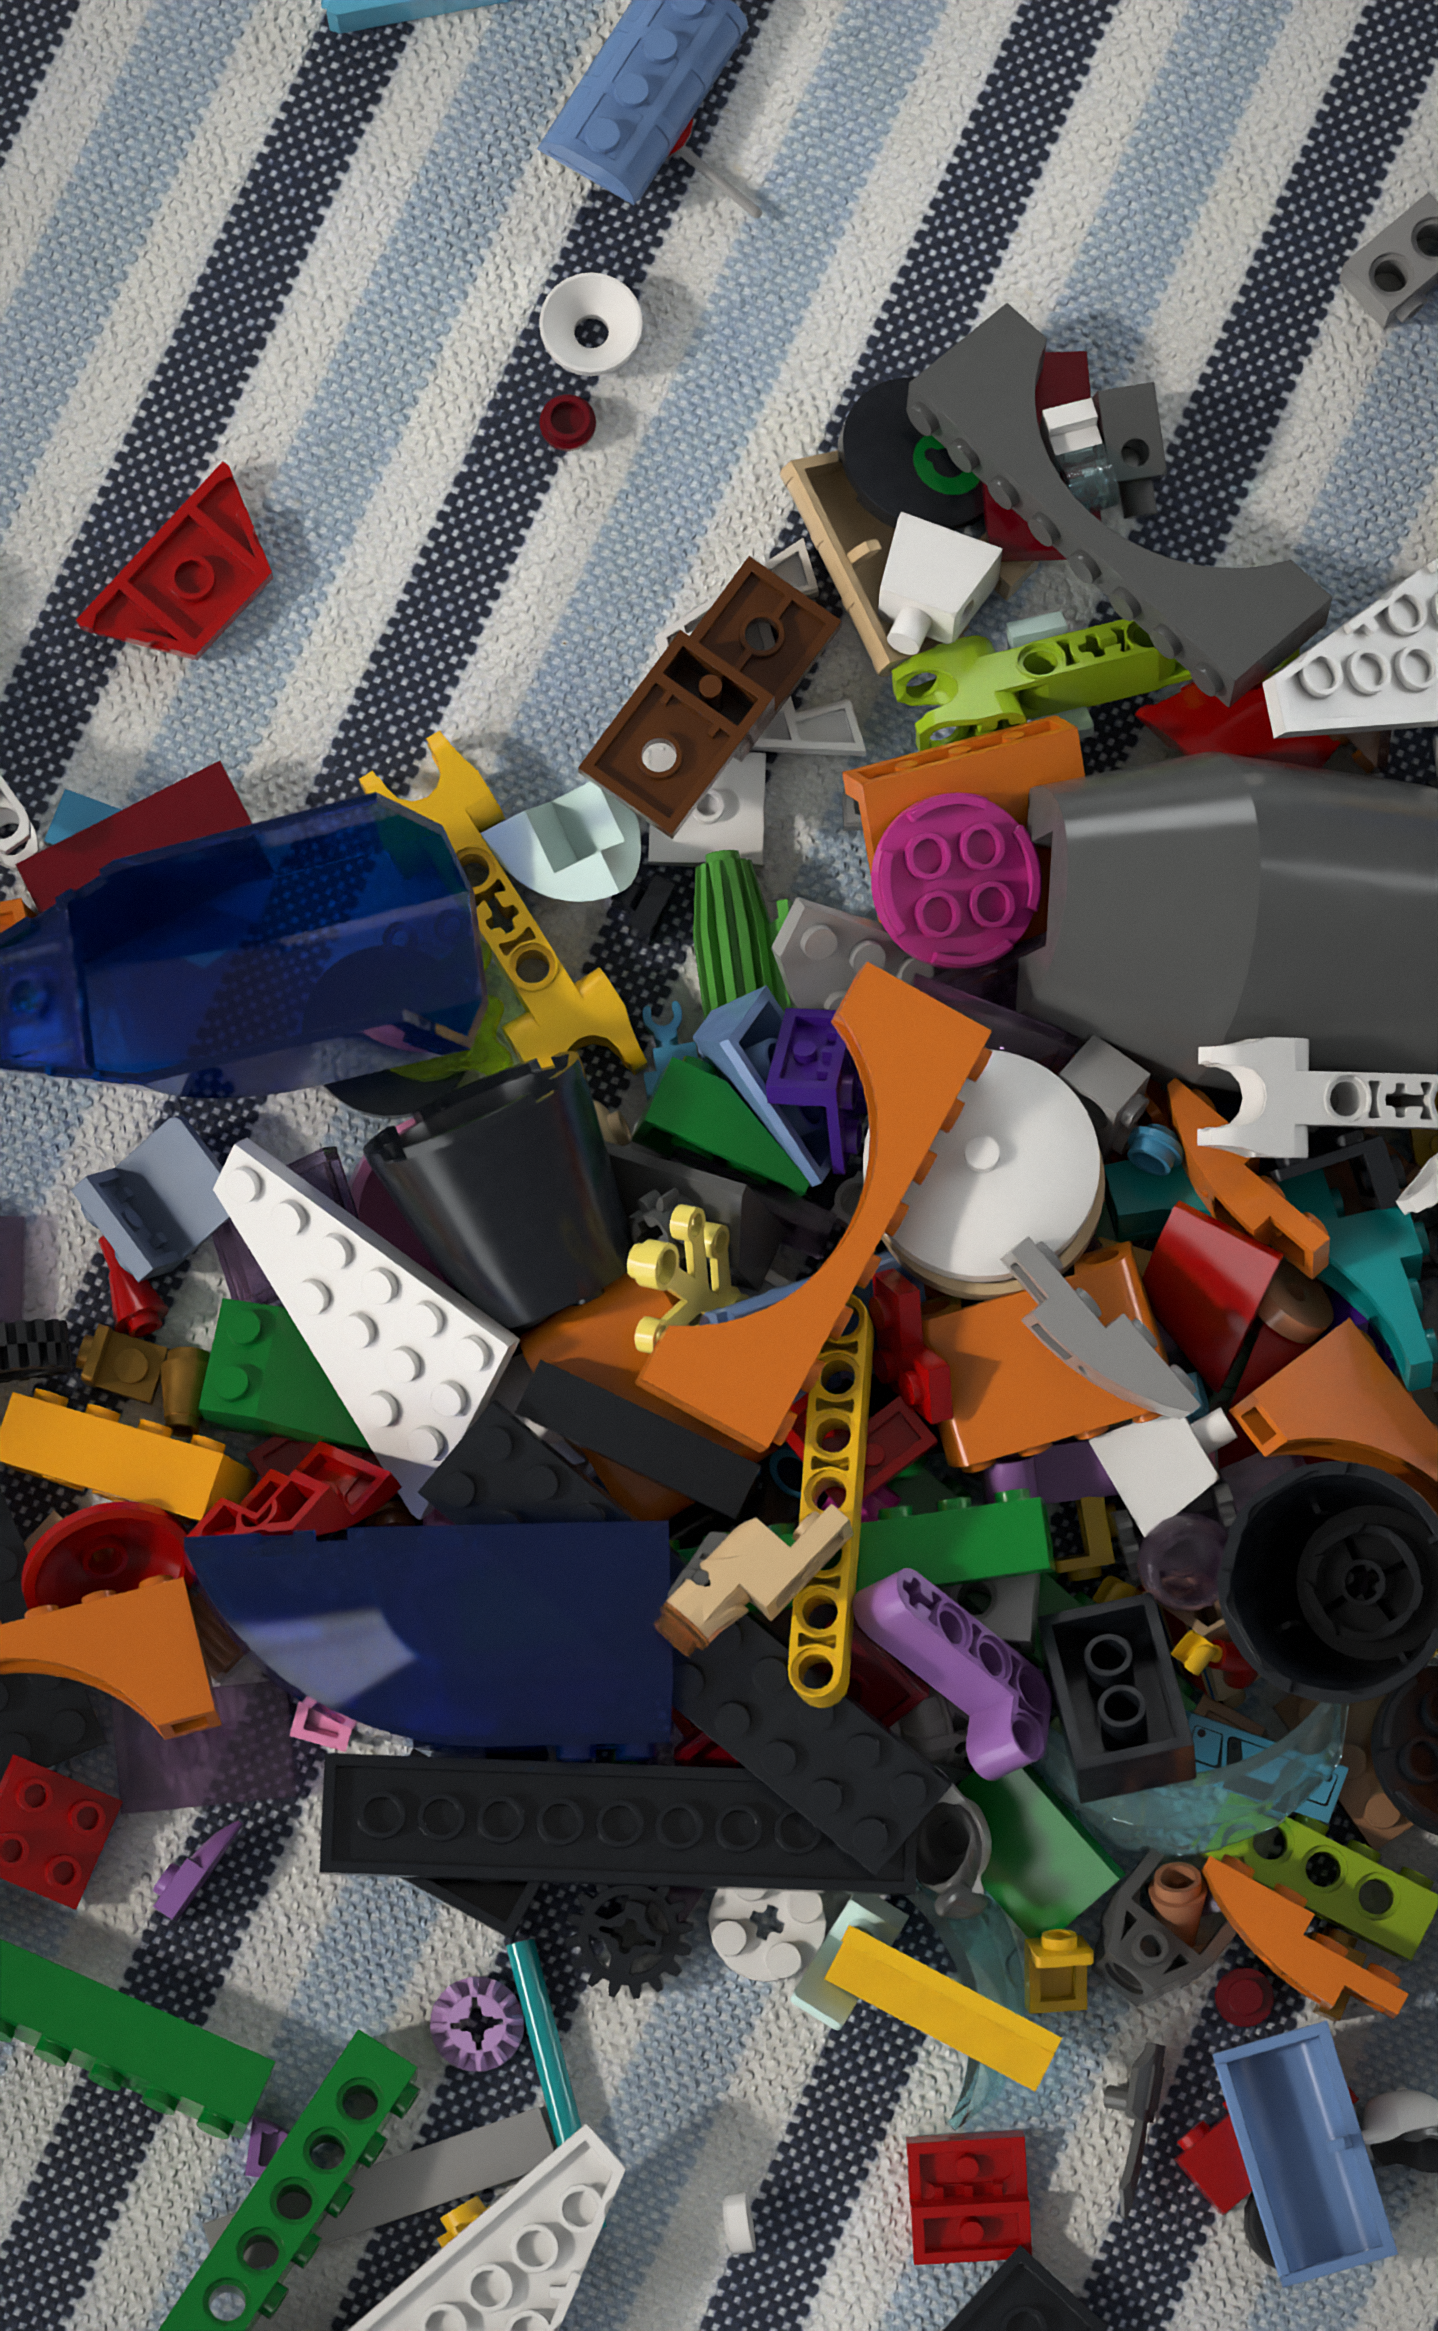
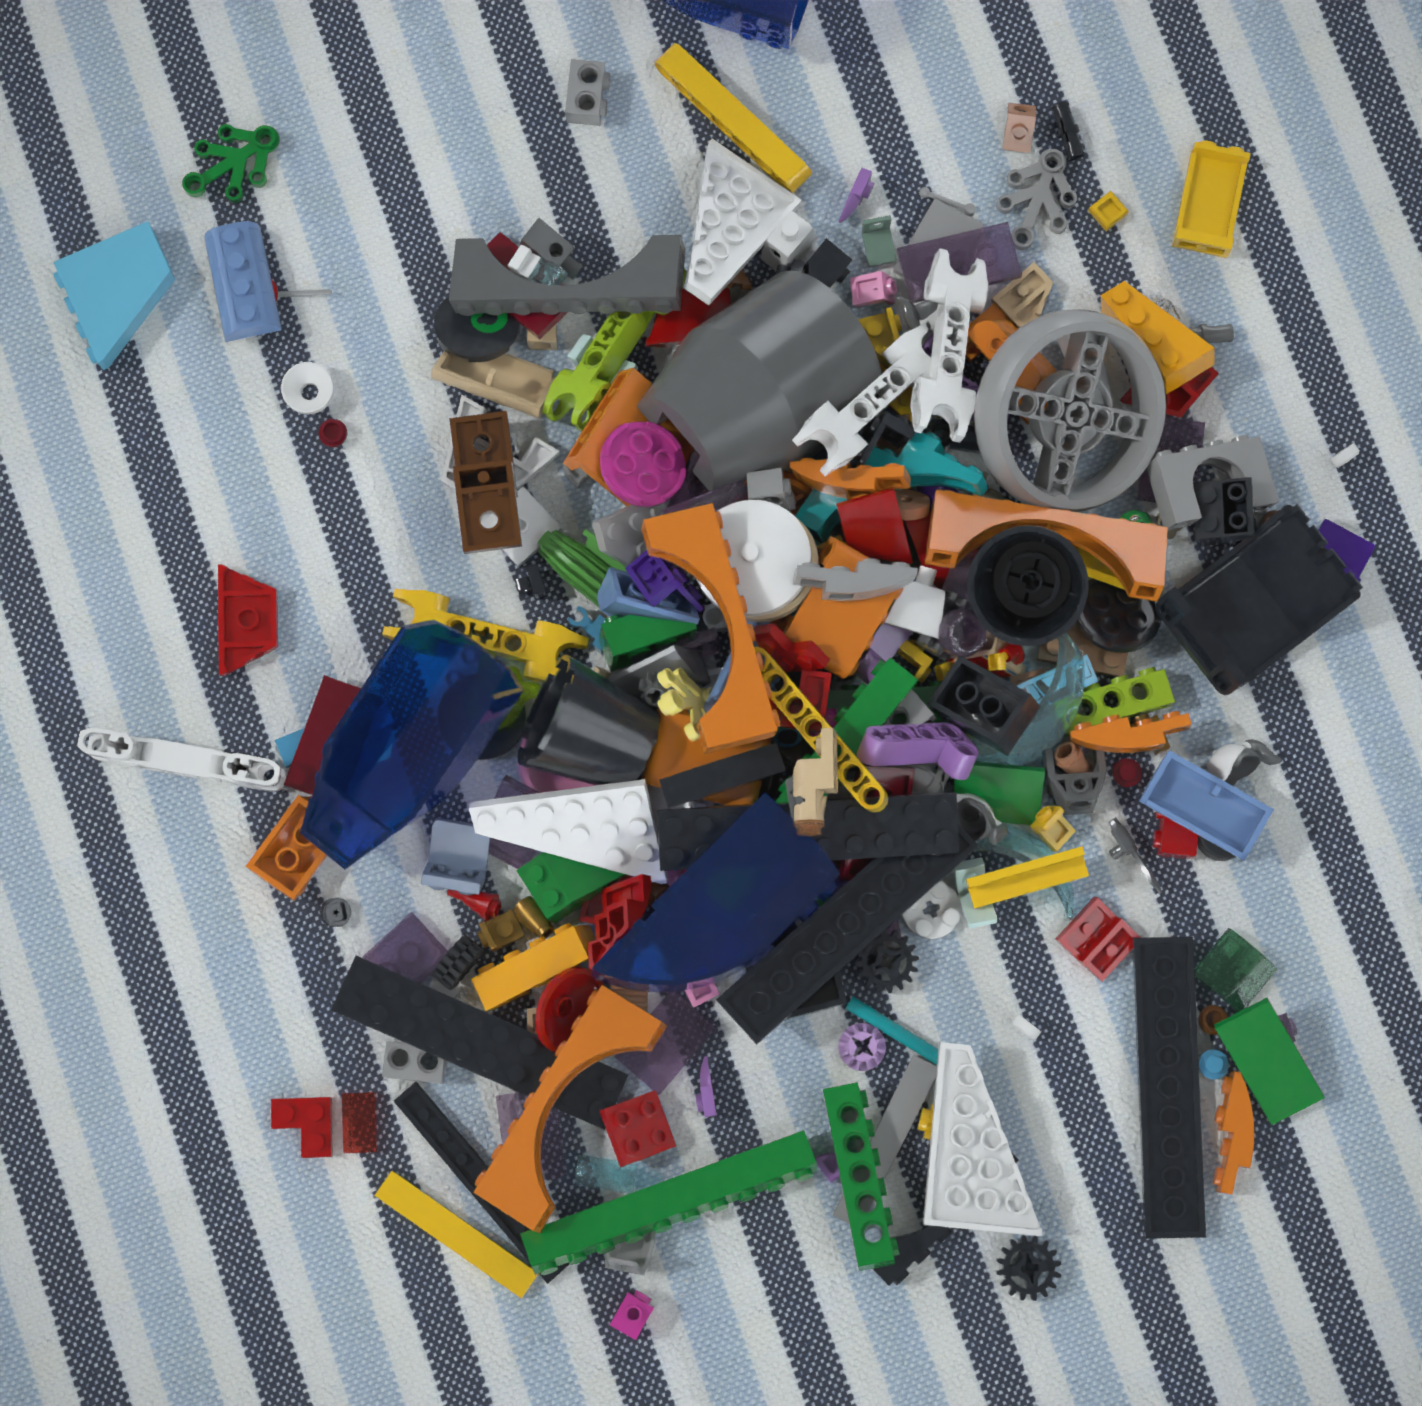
camera: 40 degrees left, 0 degrees up
(571, 847) = (485, 585): light aqua brick -> none
(934, 582) = (527, 365): white torso -> none
(1154, 1149) = (807, 494): dark azure plate -> none

